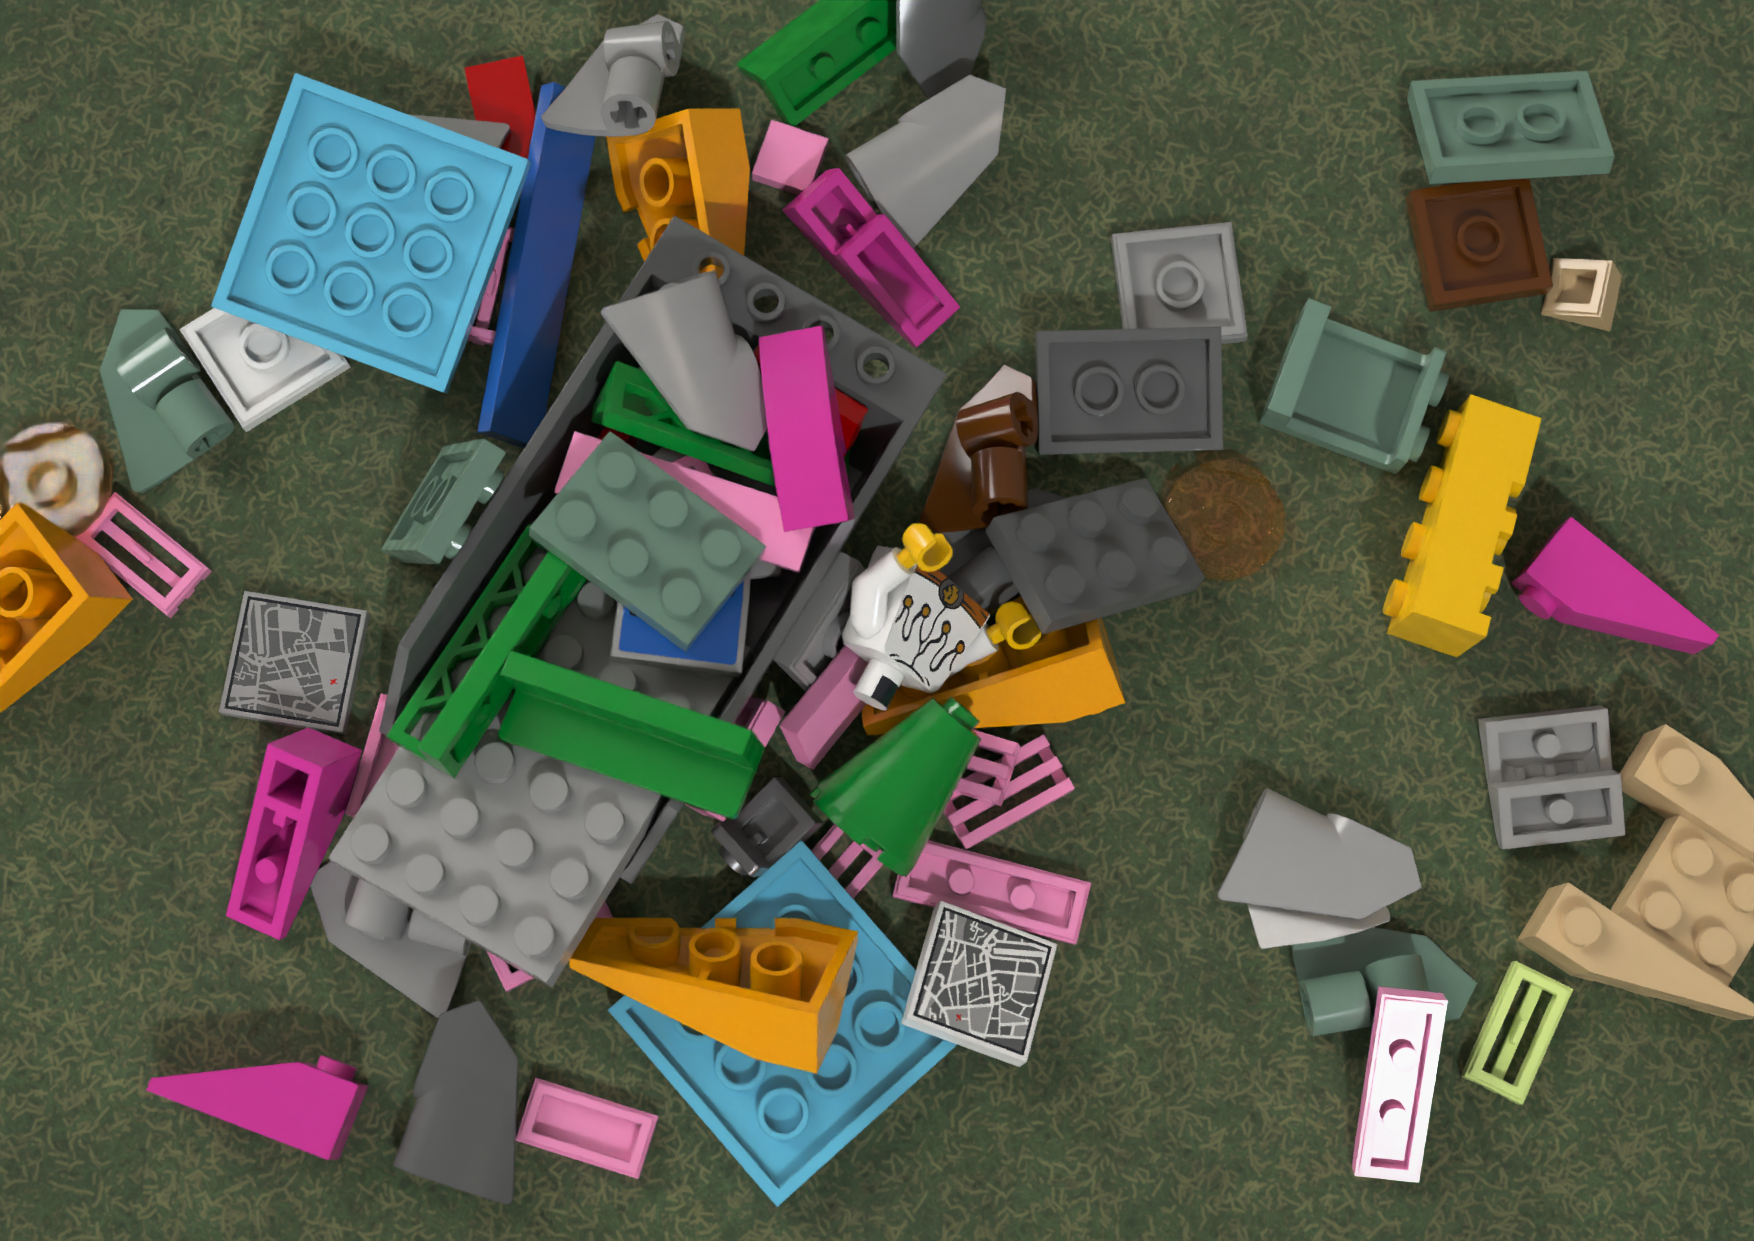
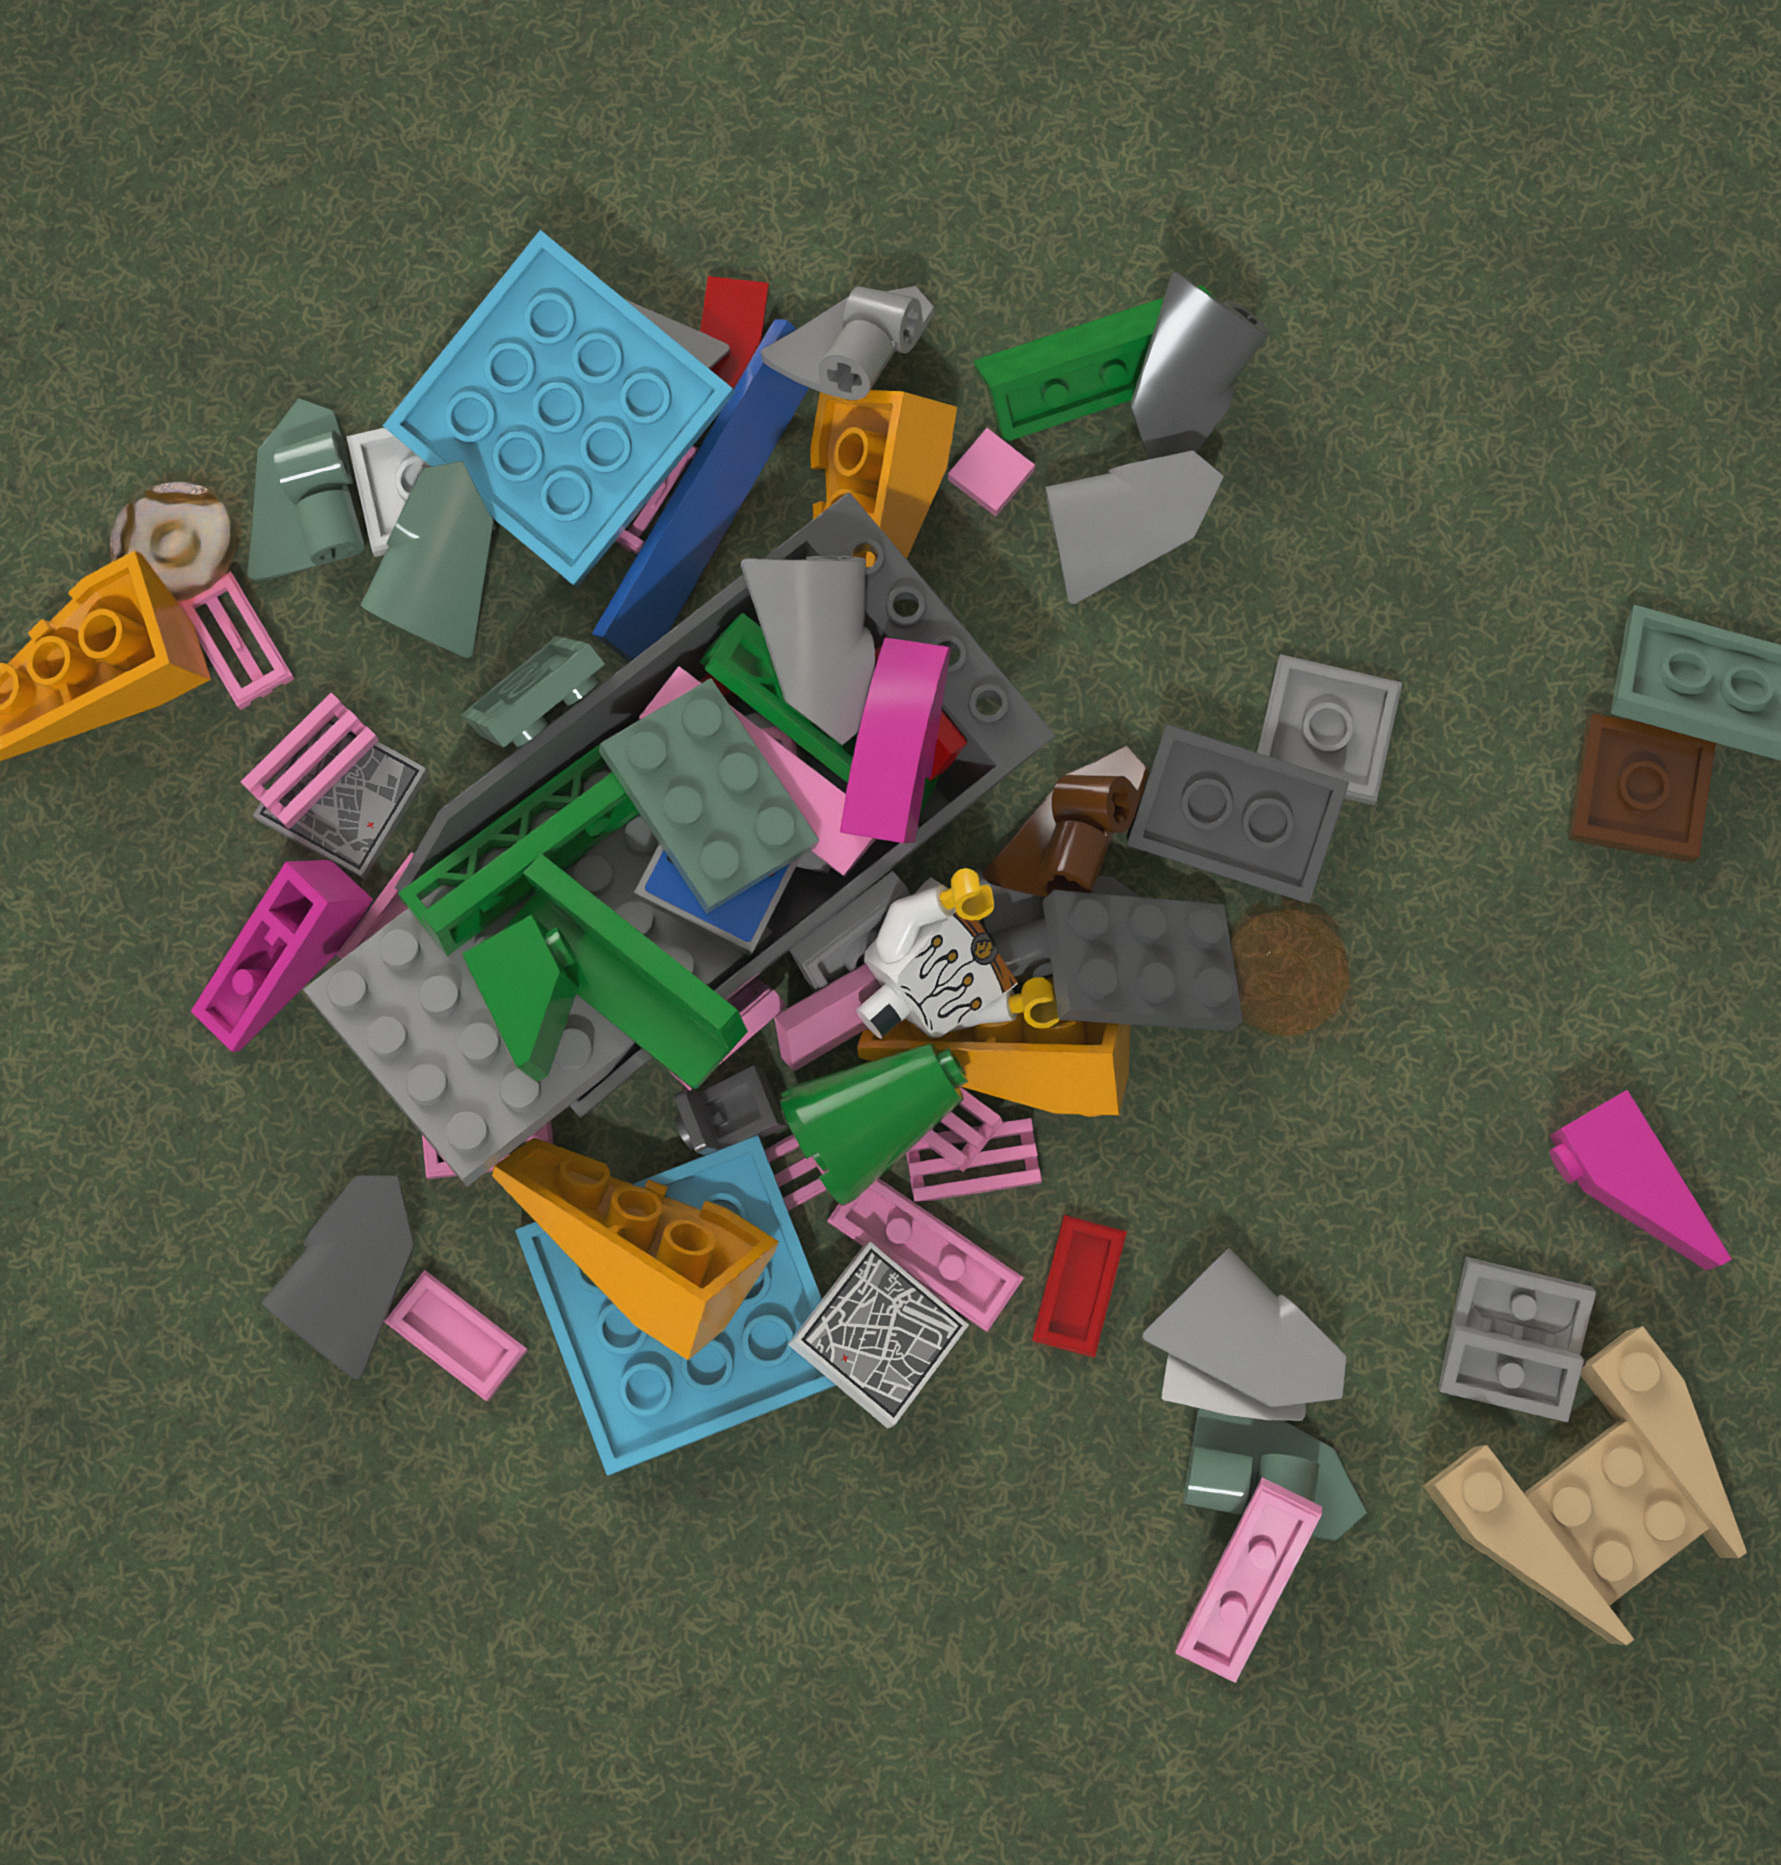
camera: 25 degrees right, 0 degrees up
(233, 632) = (292, 744): none -> bright pink tile
(287, 1102) = (180, 1204): dark pink slope -> none
(307, 414) = (436, 561): none -> sand green panel
(390, 938) = (322, 1072): light grey panel -> none
(543, 782) = (526, 990): none -> green slope
(871, 256) = (1035, 595): dark pink slope -> none
(1143, 872) = (1079, 1286): none -> red tile
(1354, 391) = (1461, 891): sand green panel -> none
(1462, 527) = (1518, 1062): yellow wedge -> none
(1494, 1021) = (1348, 1613): yellowish green tile -> none
(1583, 292) = (1731, 874): tan slope -> none

